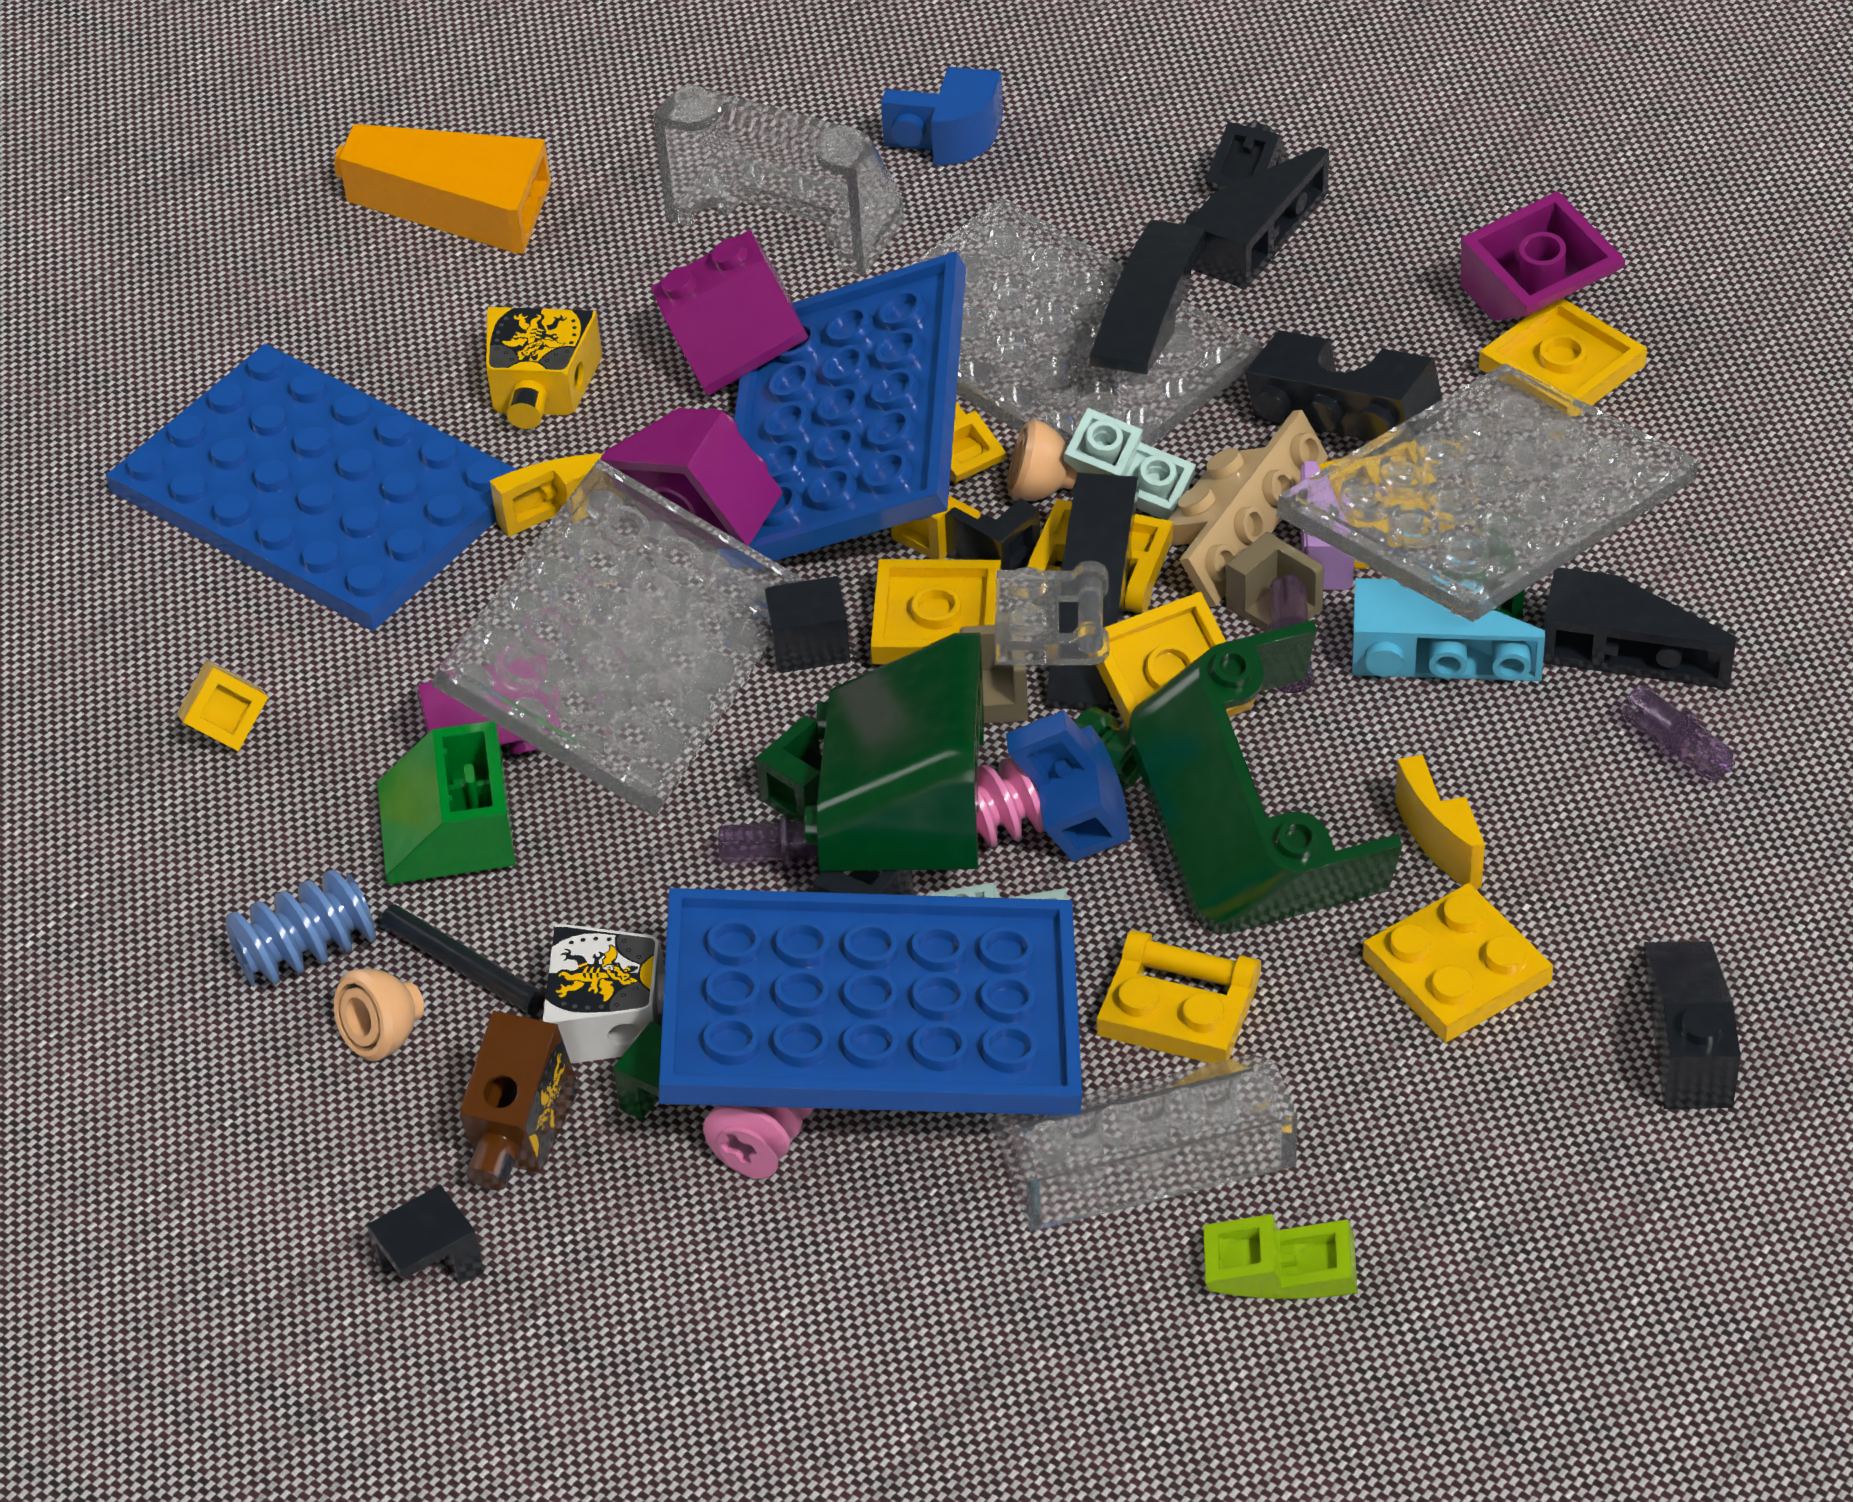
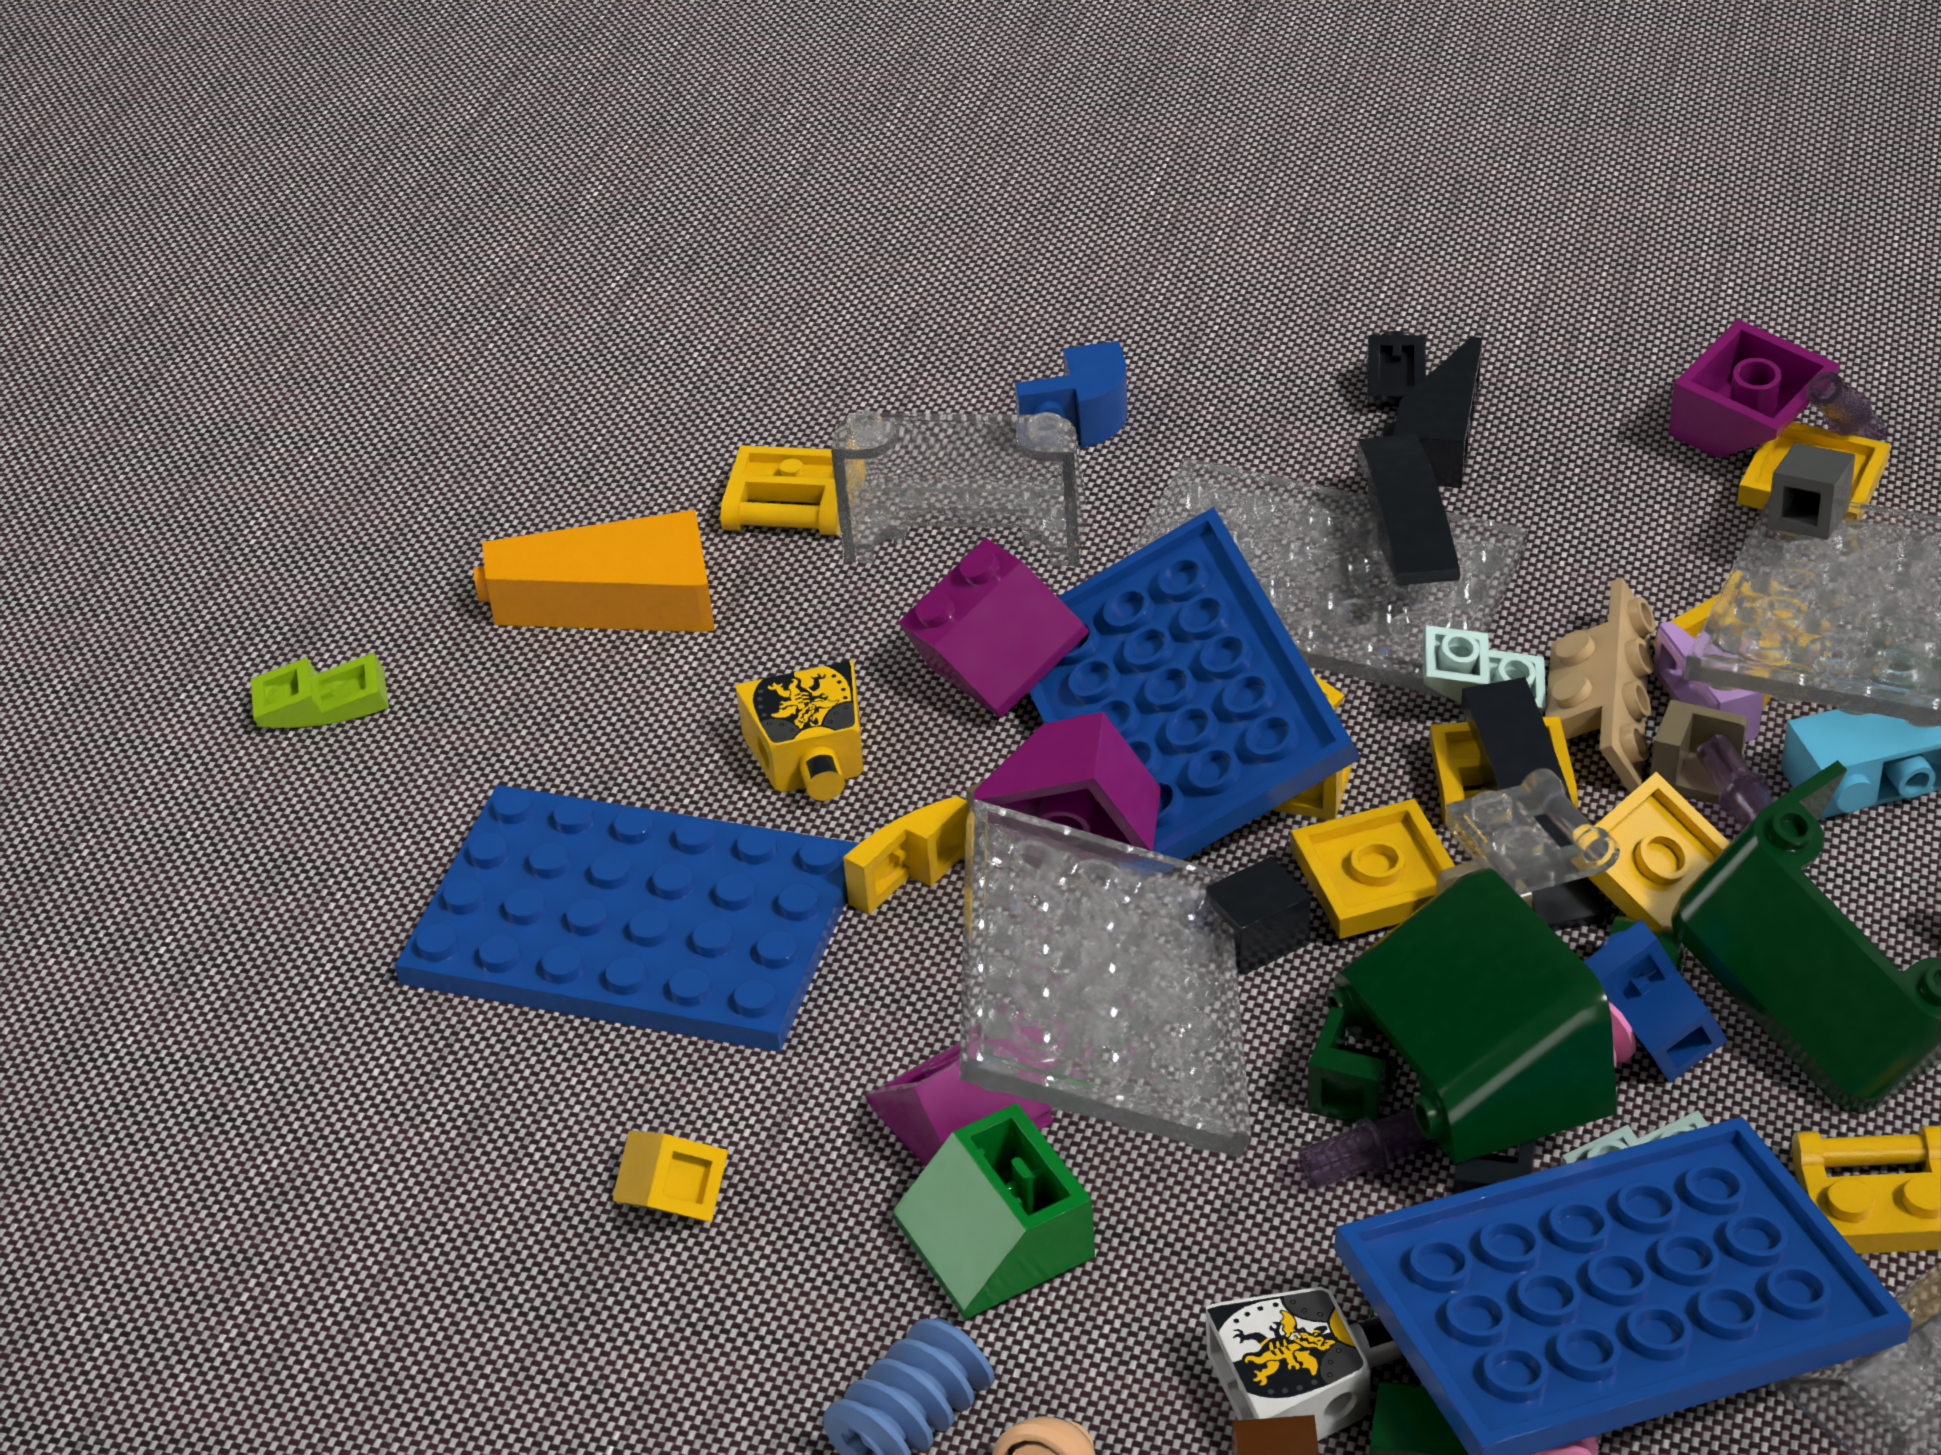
camera: 20 degrees left, 5 degrees down
(159, 226) = (302, 698): none -> lime slope
(462, 959) = (1100, 1378): black bar -> none
(630, 123) = (782, 476): none -> yellow plate
(1005, 539) = (1374, 784): black panel -> none
(1038, 463) = (1386, 695): light nougat brick -> none
(1362, 403) = (1680, 556): black arch -> none
(1514, 373) = (1811, 491): none -> dark grey brick
(1615, 305) = (1844, 410): none -> axle

